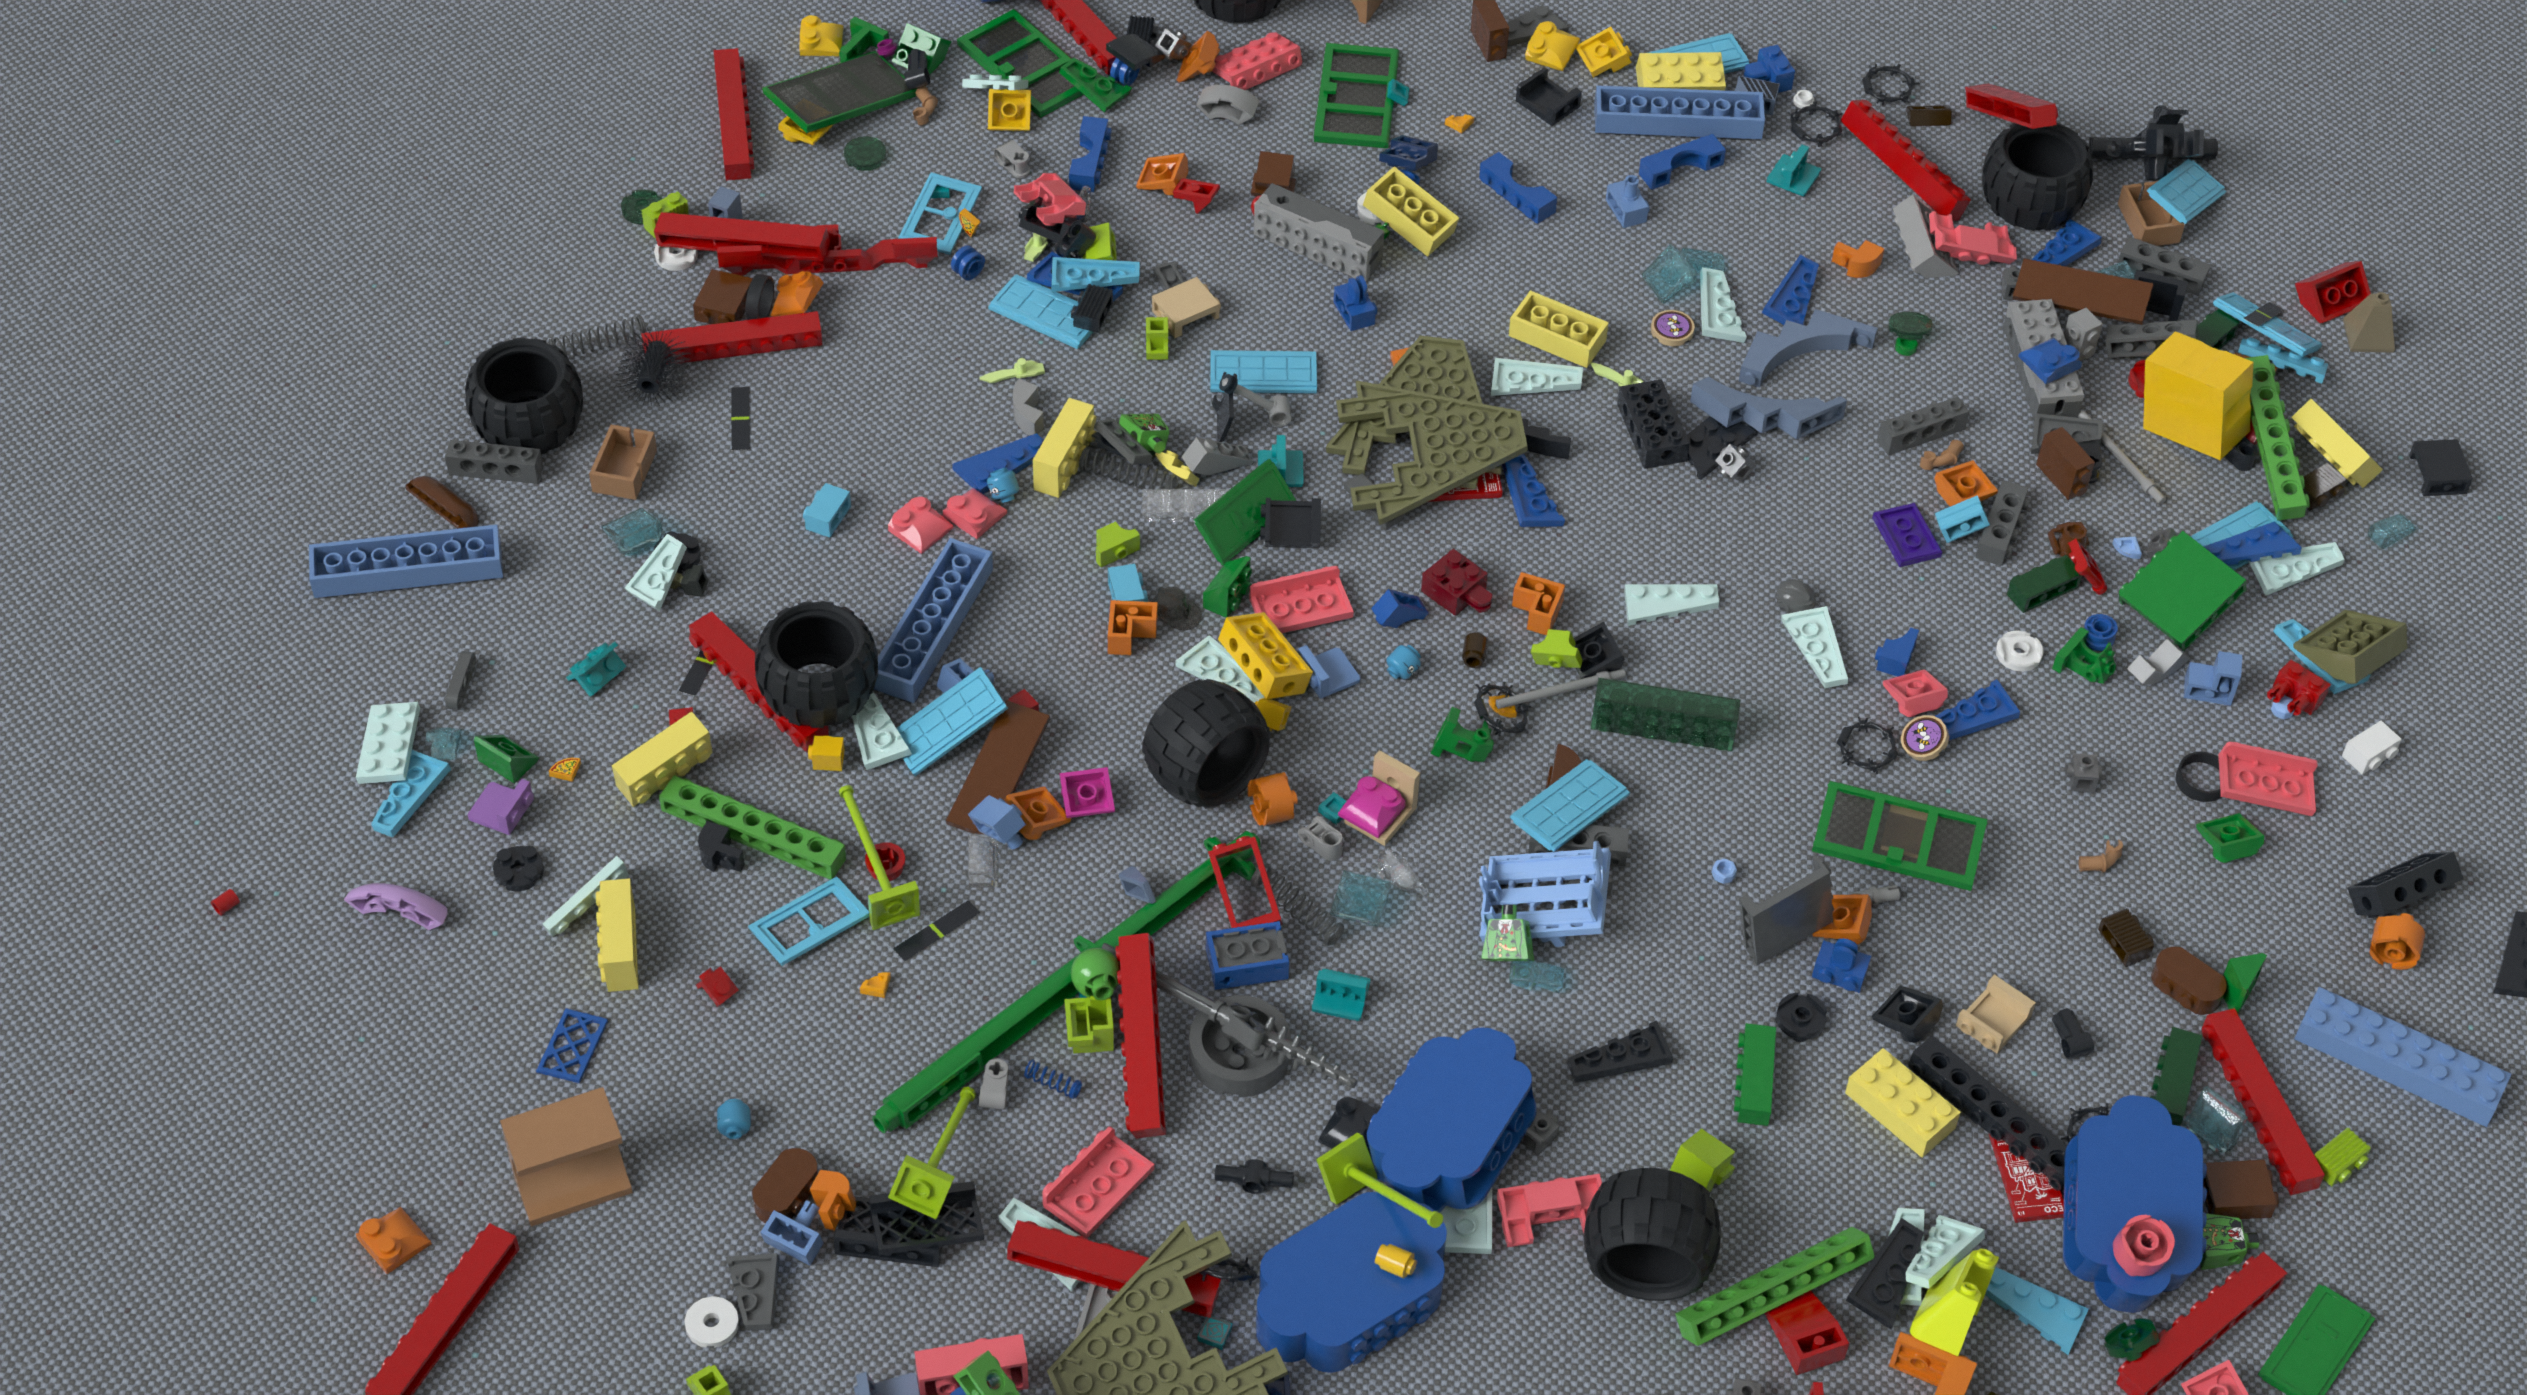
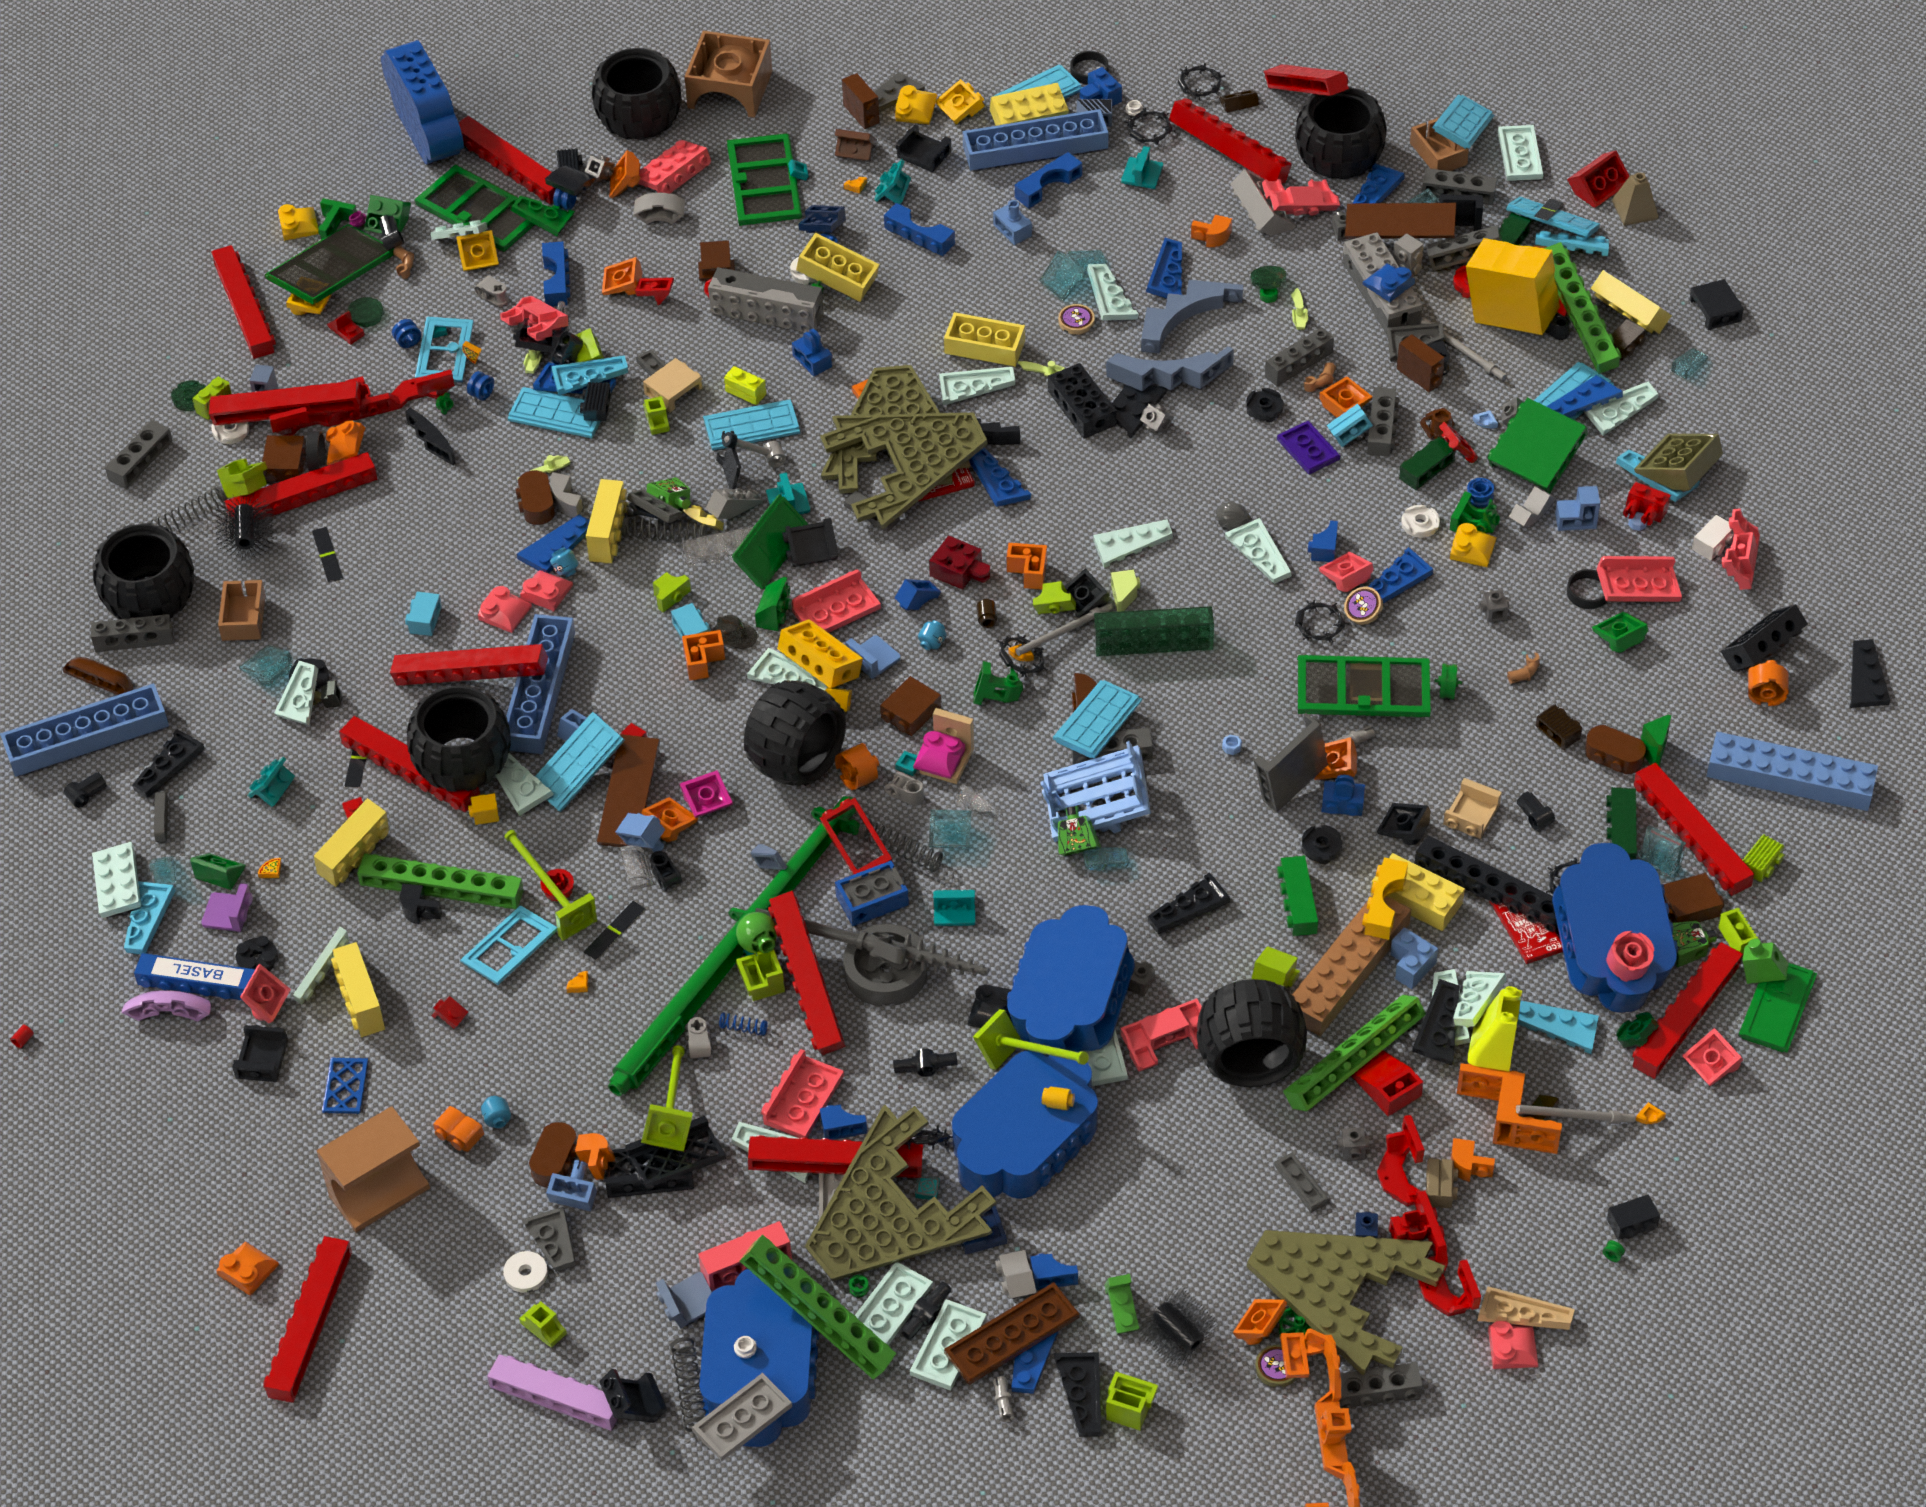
camera: 10 degrees left, 0 degrees up
(380, 632) = (81, 792): none -> black piece
(444, 879) = (192, 976): none -> blue brick
(487, 985) = (261, 1053): none -> black panel
(493, 617) = (171, 760): none -> black wing
(510, 916) = (264, 994): none -> coral slope
(565, 260) = (138, 454): none -> dark grey brick
(668, 310) = (240, 478): none -> lime plate
(684, 1129) = (458, 1129): none -> orange brick
(838, 167) = (346, 328): none -> red slope
(858, 580) = (469, 664): none -> red brick
(896, 310) = (432, 437): none -> black slope
(902, 186) = (406, 333): none -> blue wheel
(922, 274) = (444, 403): none -> green plate
(992, 403) = (535, 497): none -> reddish brown brick
(1013, 875) = (664, 870): none -> black piece
(1132, 1229) = (840, 1124): none -> blue arch
(1268, 325) = (745, 385): none -> neon yellow brick
(1354, 740) = (910, 706): none -> reddish brown brick
(1469, 76) = (854, 145): none -> reddish brown bracket
(1502, 130) = (893, 184): none -> teal bracket
(1645, 655) = (1124, 588): none -> yellowish green slope
(1766, 29) = (1086, 55): none -> black tyre
(1798, 1170) = (1345, 968): none -> medium nougat brick
(1868, 483) = (1261, 412): none -> black plate
(1872, 1080) = (1391, 879): none -> yellow arch
(1879, 1183) = (1414, 956): none -> medium blue brick
(1936, 378) = (1300, 315): none -> yellowish green piece
(2004, 852) = (1448, 681): none -> green wheel
(2074, 694) = (1472, 546): none -> yellow slope
(2156, 144) = (1431, 86): black piece -> none
(2246, 241) = (1520, 152): none -> light aqua plate
(2287, 1244) = (1736, 929): none -> lime brick
(2310, 1290) = (1763, 962): none -> bright green torso
(2401, 778) = (1742, 555): none -> coral bracket

